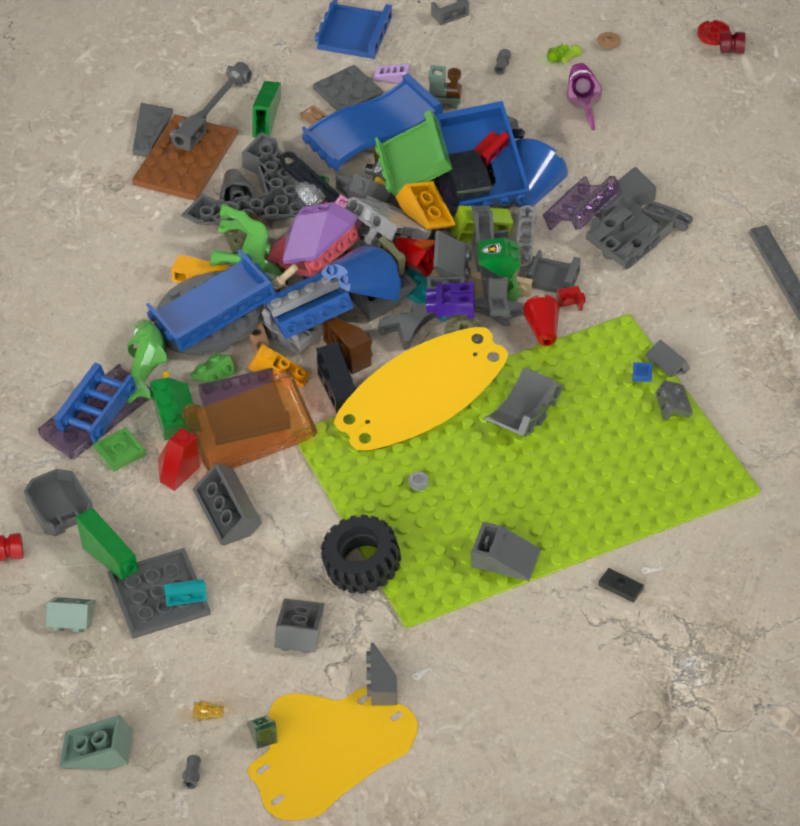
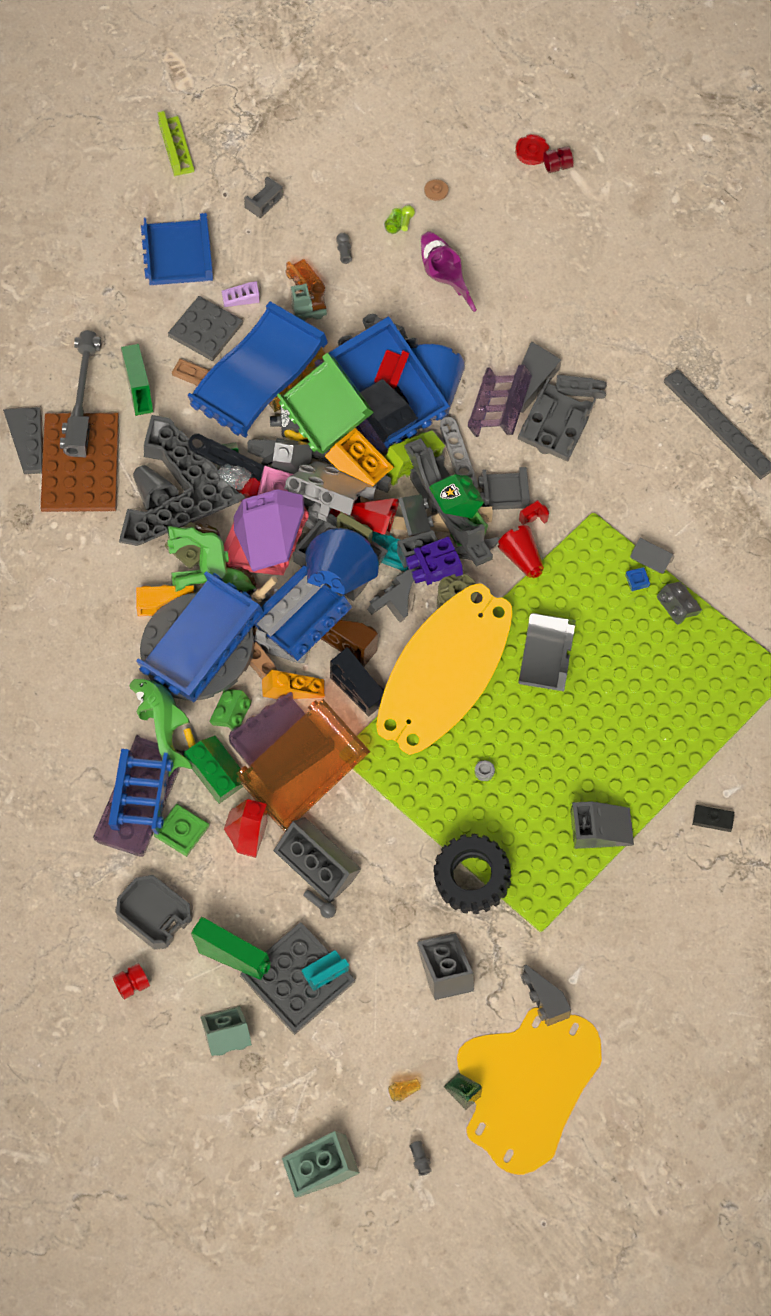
camera: 25 degrees left, 15 degrees up
(214, 547) = (327, 909): none -> dark grey bar
(464, 81) = (301, 274): none -> clear orange bracket

